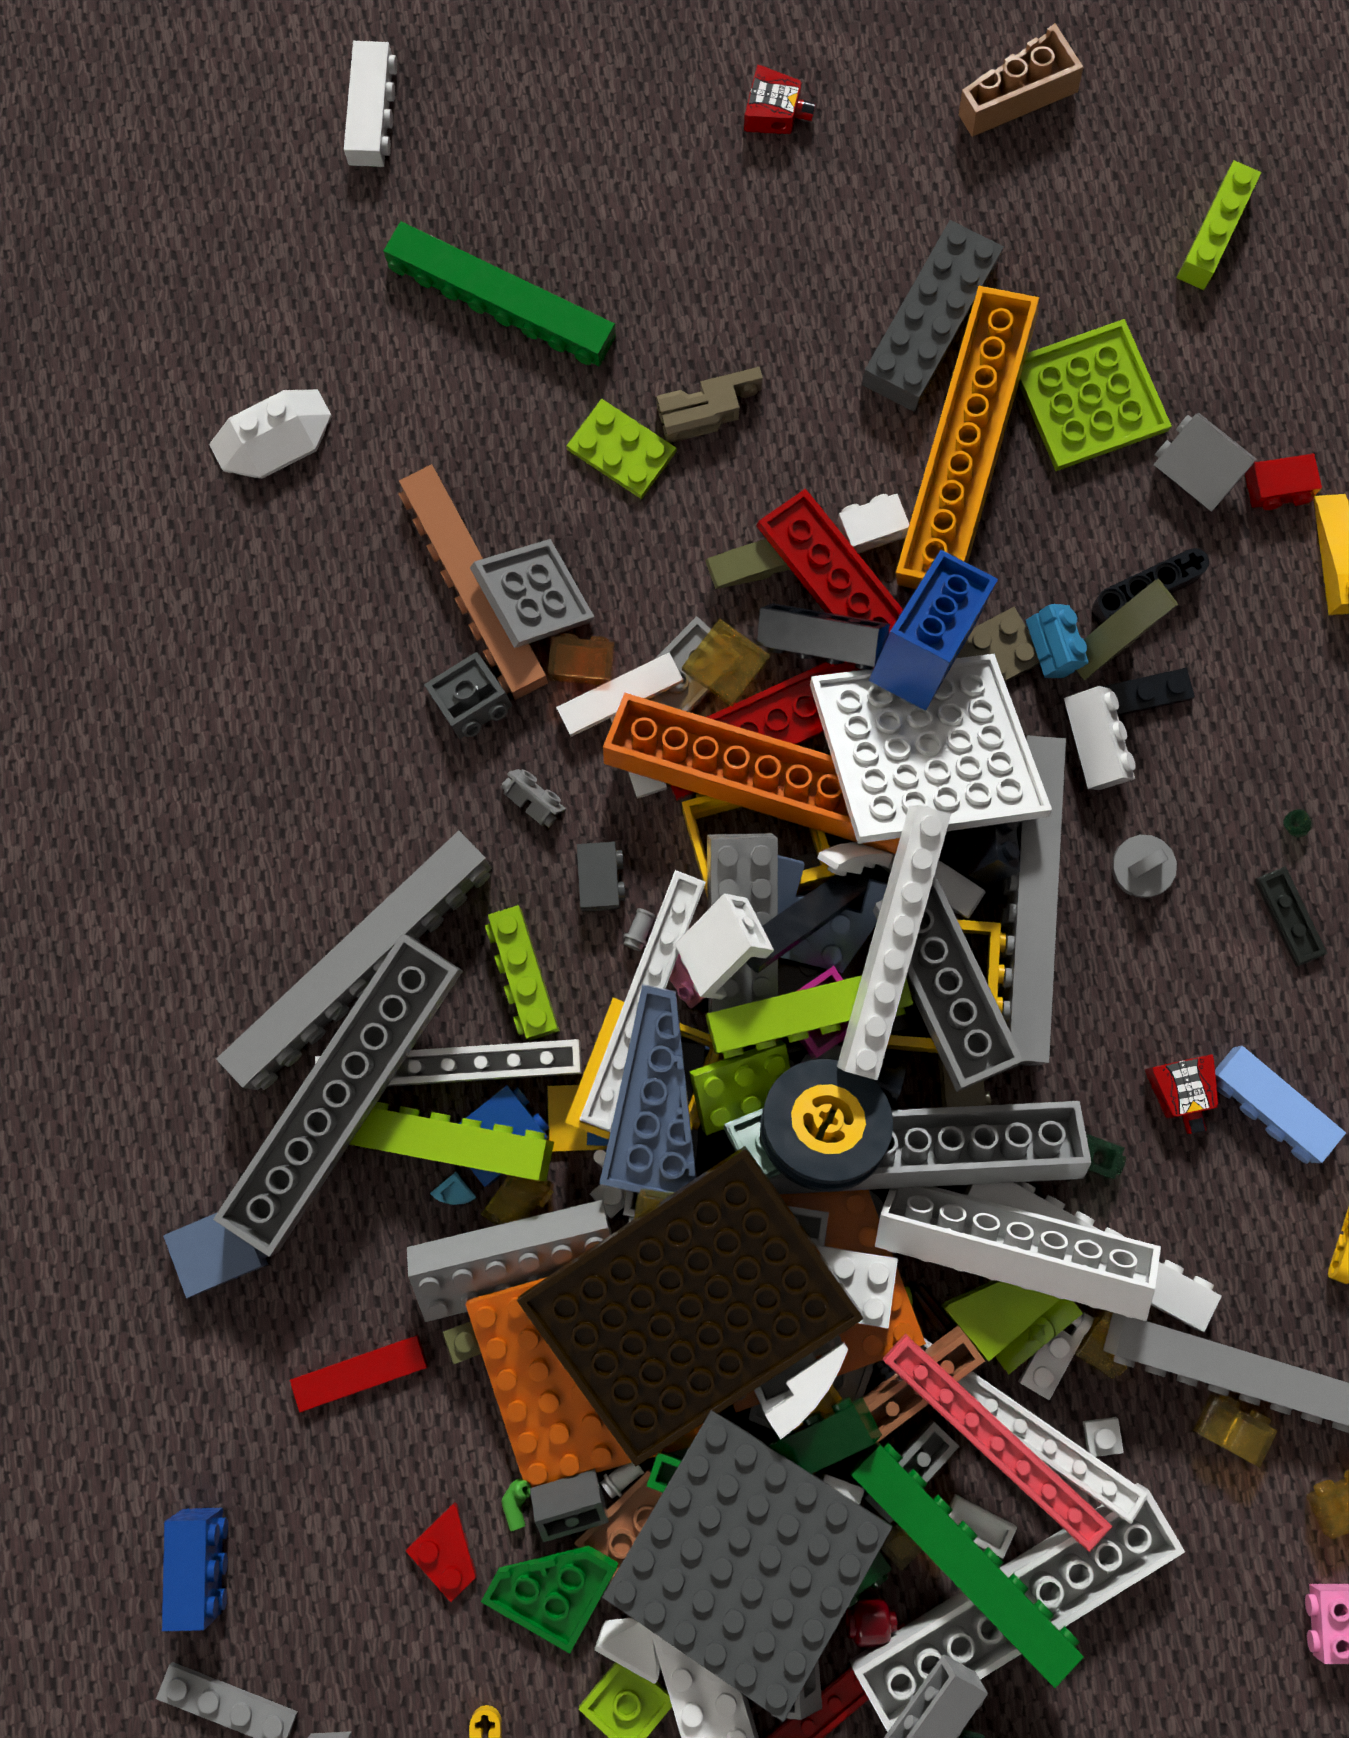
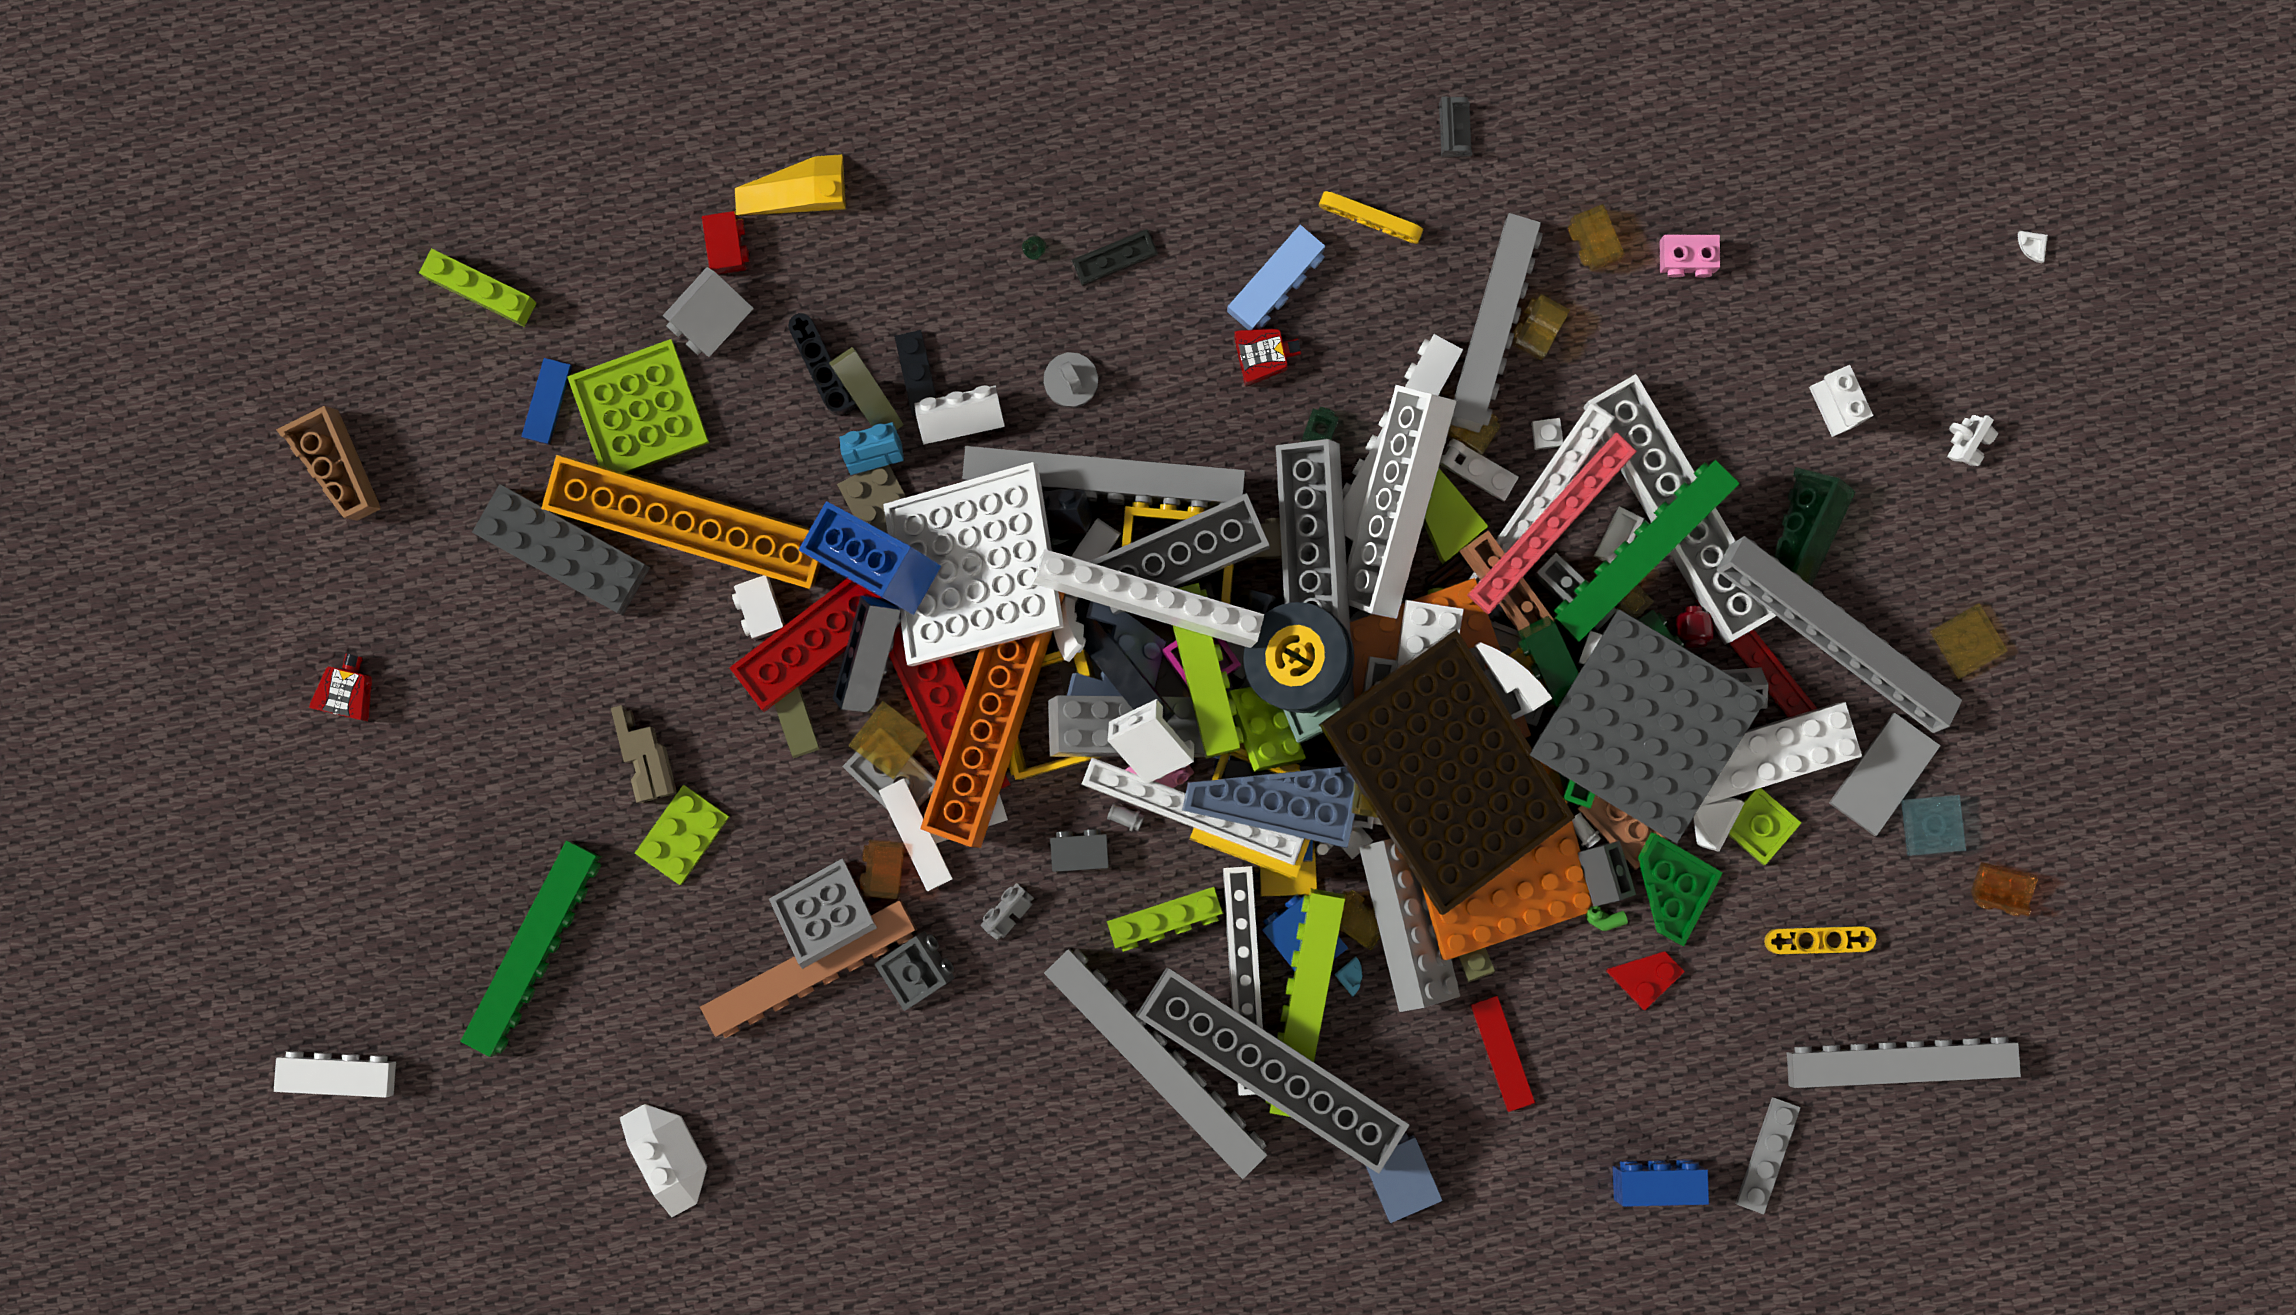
camera: 90 degrees left, 5 degrees up
(1038, 1334) = (1466, 484): lime piece -> none
(1095, 300) = (546, 401): none -> blue tile

